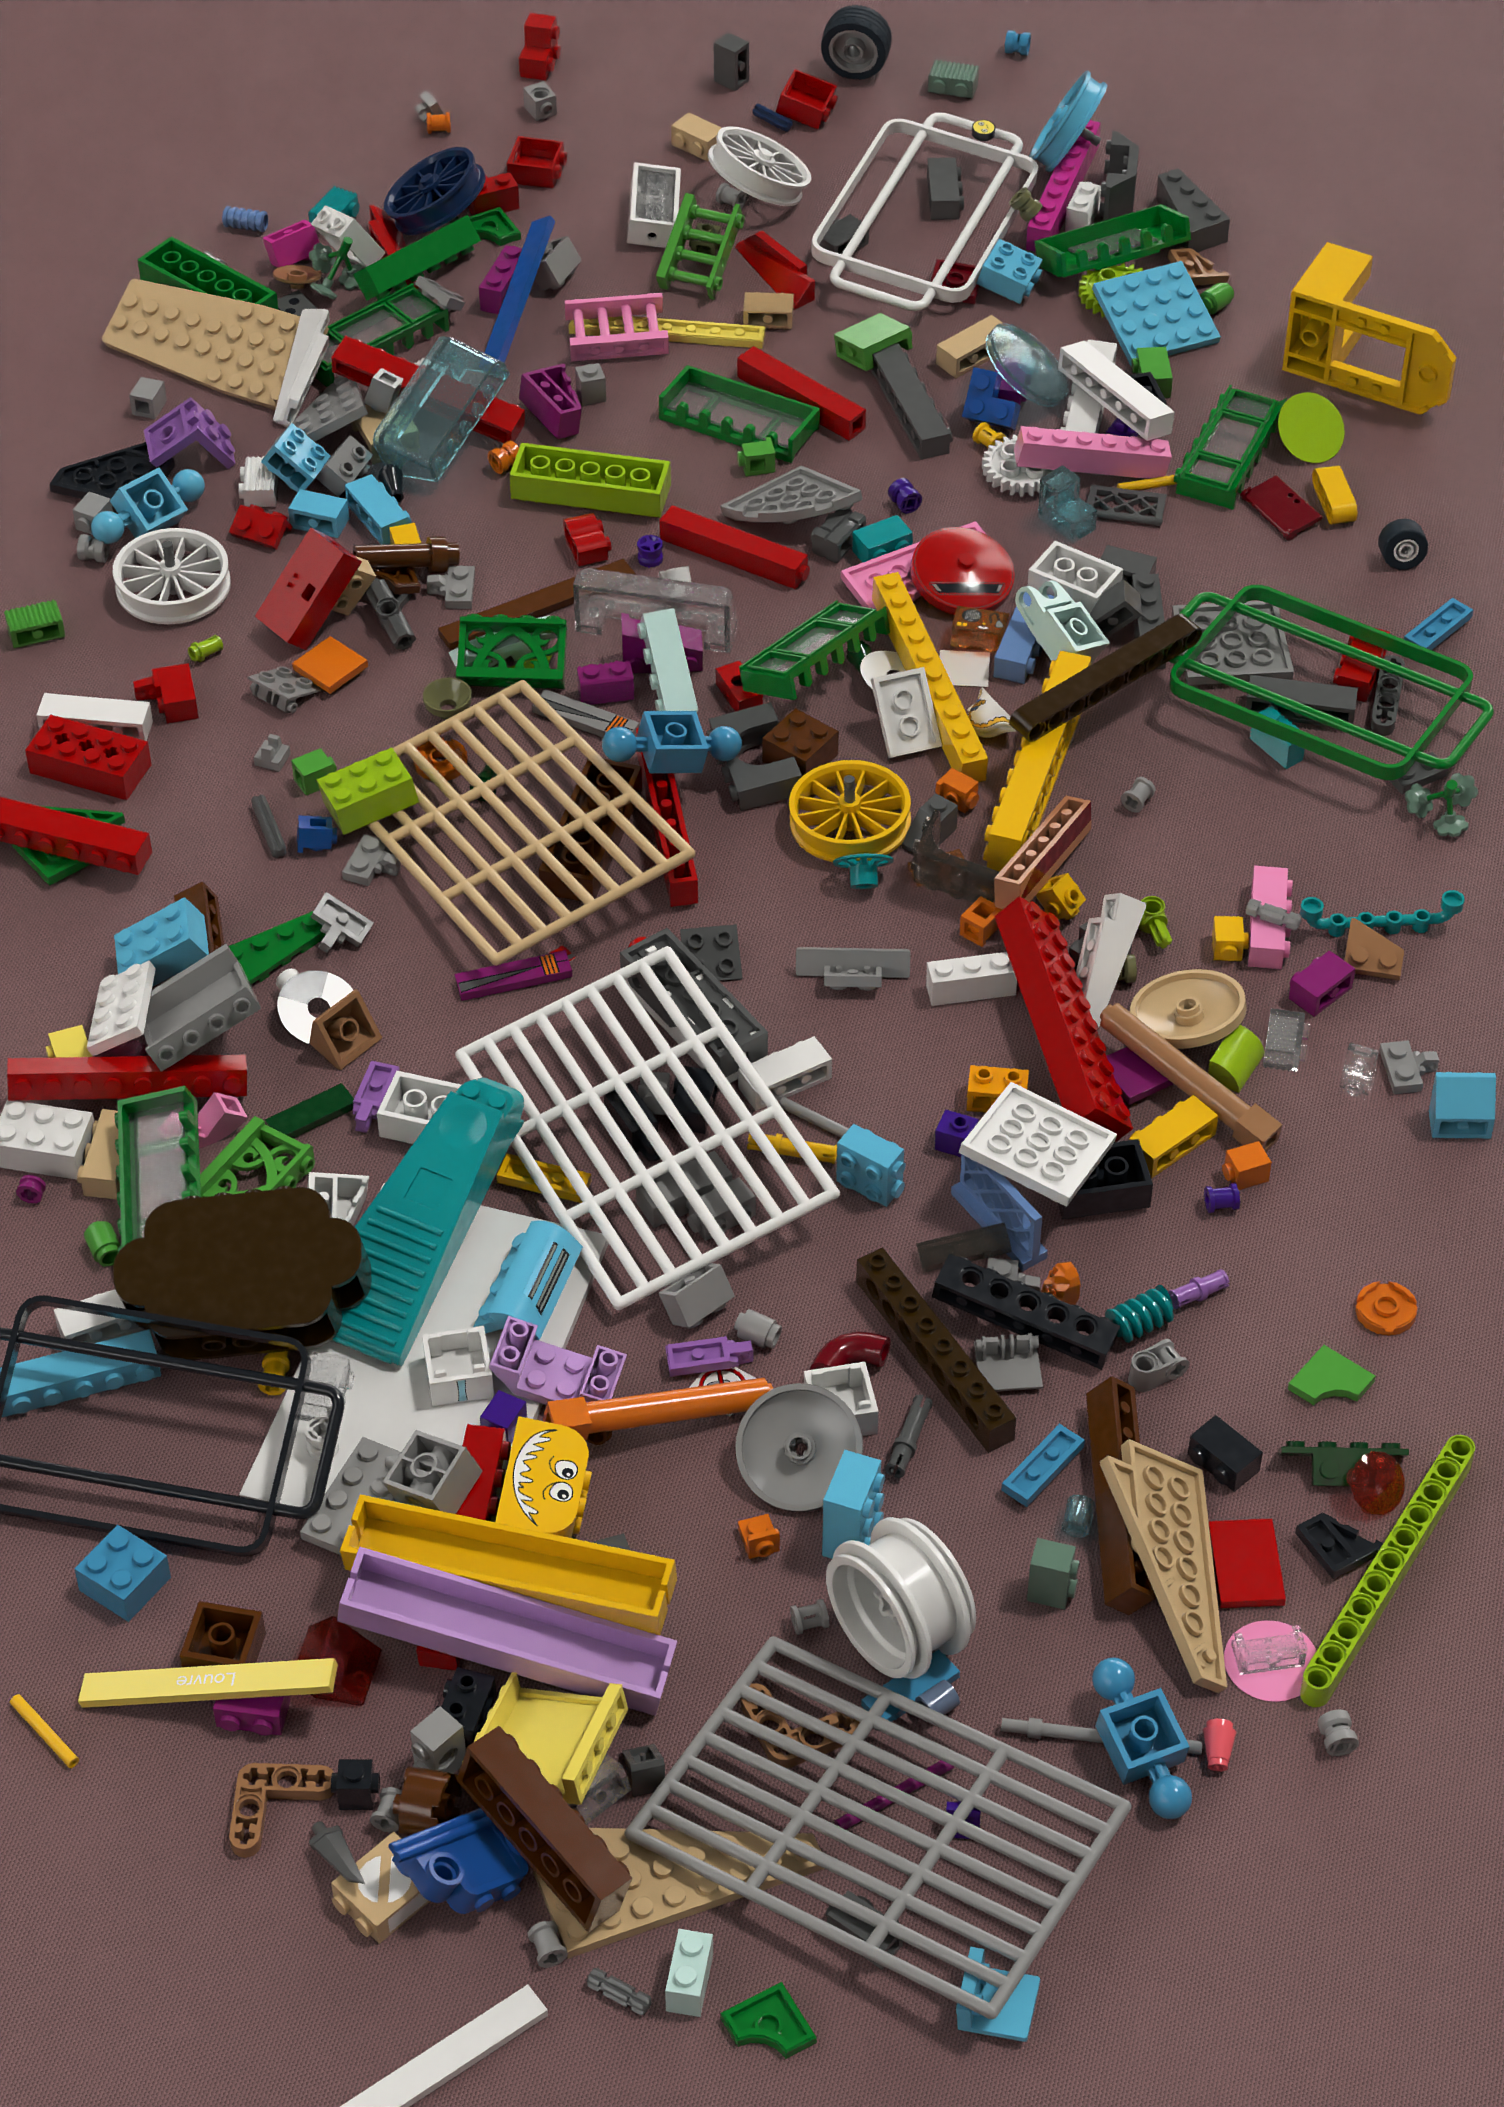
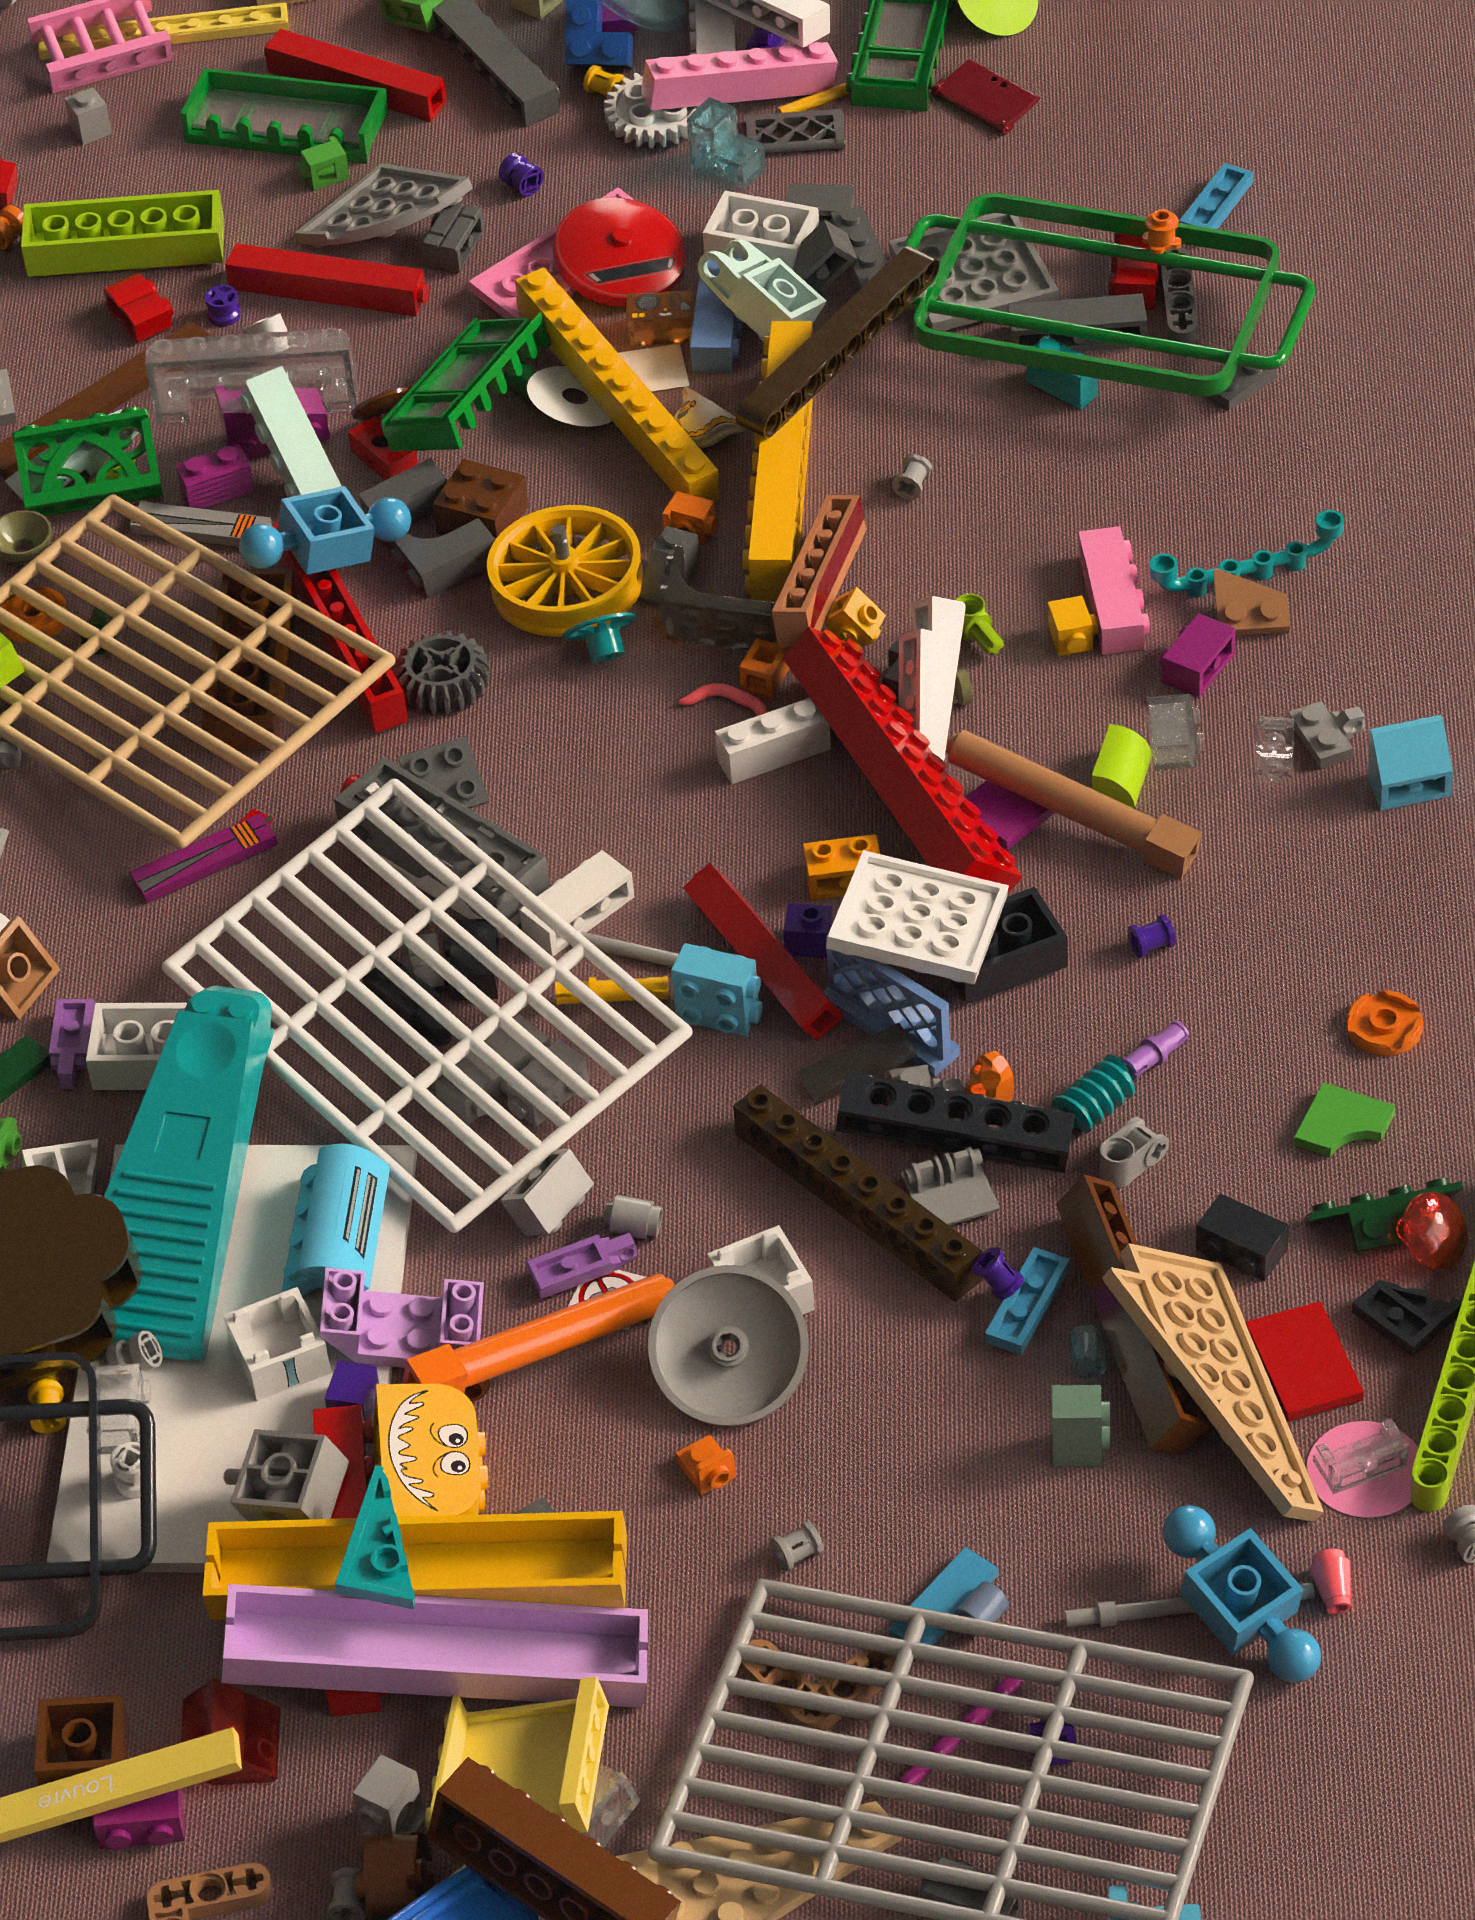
camera: 10 degrees left, 0 degrees up
(354, 1347) = (140, 1349): none -> light grey wheel
(355, 1784) = (297, 1875): black brick -> none
(359, 1475) = (180, 1556): light grey plate -> none
(469, 1699) = (410, 1739): black brick -> none
(476, 1551) = (375, 1557): none -> teal wing
(513, 1173) = (279, 1098): yellow plate -> none
(552, 400) = (46, 145): magenta wedge -> none
(644, 1768) = (650, 1772): dark grey slope -> none
(734, 870) = (442, 672): none -> dark grey gear
(743, 652) = (378, 405): none -> reddish brown dish
(852, 1501) = (817, 1402): medium azure brick -> none
(853, 966) = (622, 756): light grey bracket -> none
(853, 1348) = (756, 1214): dark red cylinder -> none
(881, 538) = (507, 232): teal brick -> none
(901, 1597) = (908, 1493): white wheel -> none
(905, 1445) = (853, 1315): dark grey pin -> none
(906, 712) = (601, 435): white plate -> none
(918, 1144) = (756, 941): none -> red brick
(949, 933) = (726, 691): none -> coral animal
(1024, 1438) = (997, 1273): none -> dark purple bush
(1176, 1134) = (1076, 870): yellow brick -> none
(1191, 1007) = (1051, 715): tan dish -> none
(1247, 1165) = (1171, 890): orange brick -> none
(1273, 914) = (1119, 584): light grey axle -> none
(1334, 494) = (1046, 68): yellow beam -> none
(1383, 642) = (1161, 231): none -> orange brick
(1403, 544) = (1147, 110): black wheel -> none
(1457, 790) = (1296, 392): sand green plant -> none

